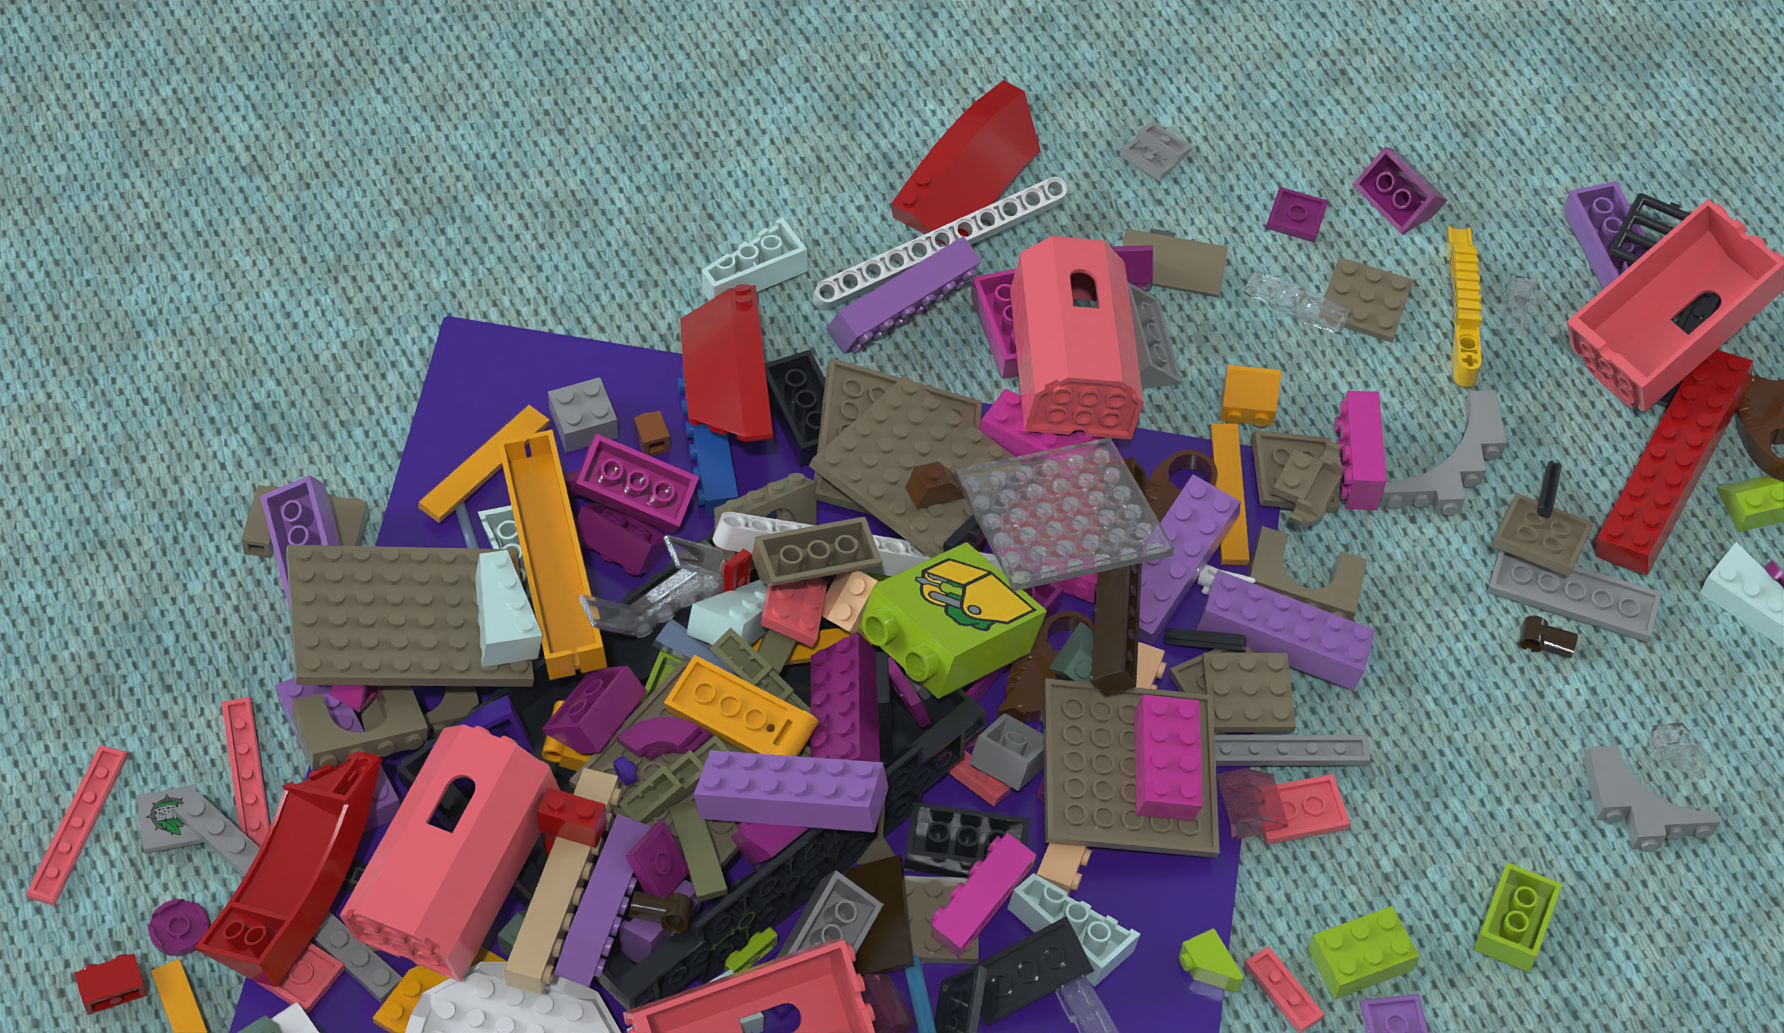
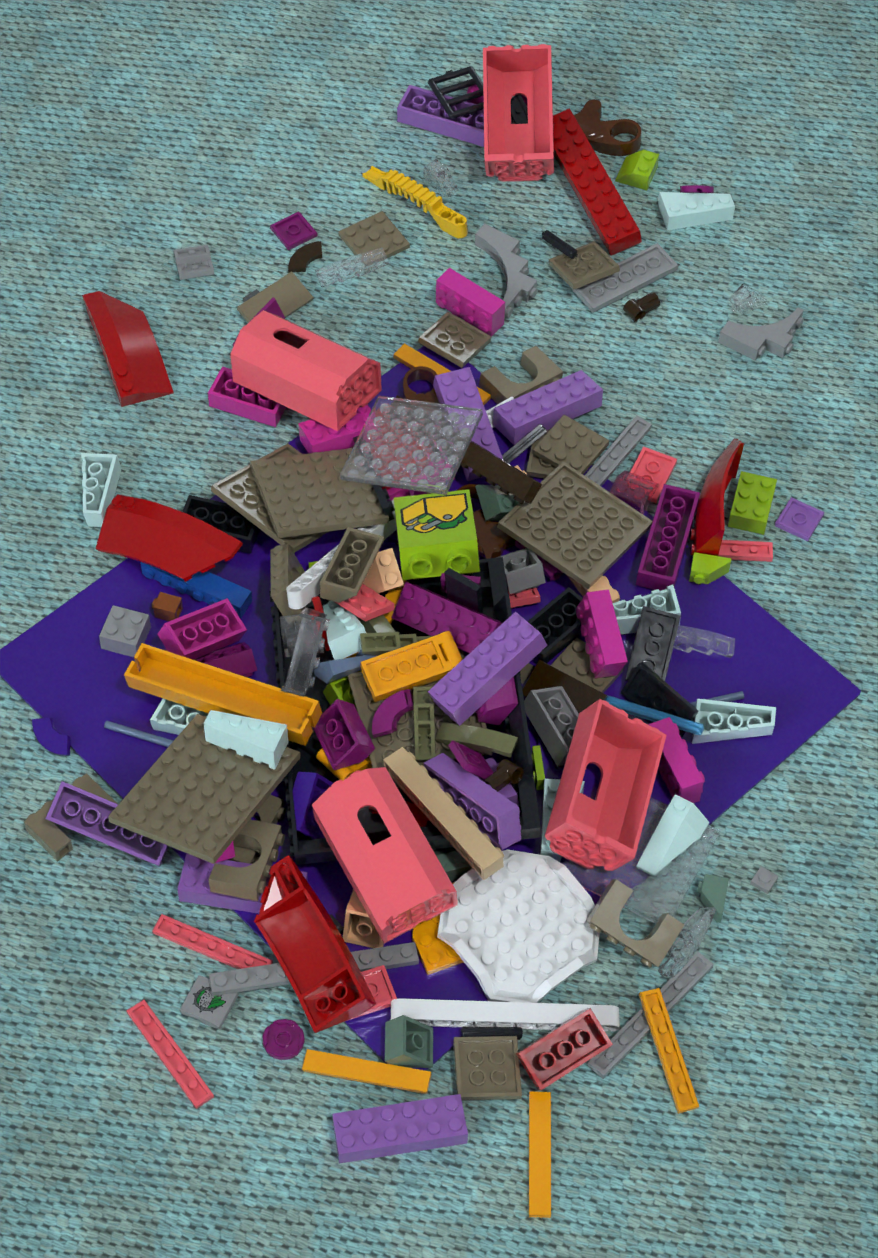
camera: 50 degrees left, 0 degrees up
(110, 983) = (294, 1093): red brick -> none
(393, 440) = (50, 737): none -> dark purple tile
(479, 466) = (113, 700): light orange tile -> none
(571, 817) = (417, 779): red brick -> none
(625, 770) = (397, 742): dark purple tile -> none
(903, 295) = (188, 432): medium lavender brick -> none
(933, 485) = (342, 491): reddish brown slope -> none
(947, 233) = (164, 400): white beam -> none
(1168, 757) = (588, 501): dark pink brick -> none
(1211, 886) = (668, 538): none -> magenta brick
(1250, 395) = (393, 326): light orange slope -> none
(1270, 248) = (305, 255): none -> dark brown tile
(1310, 483) = (471, 336): dark tan plate -> none
(1320, 902) = (709, 517): none -> red slope
(1399, 191) = (322, 178): magenta slope -> none
(1518, 917) = (786, 426): lime brick -> none

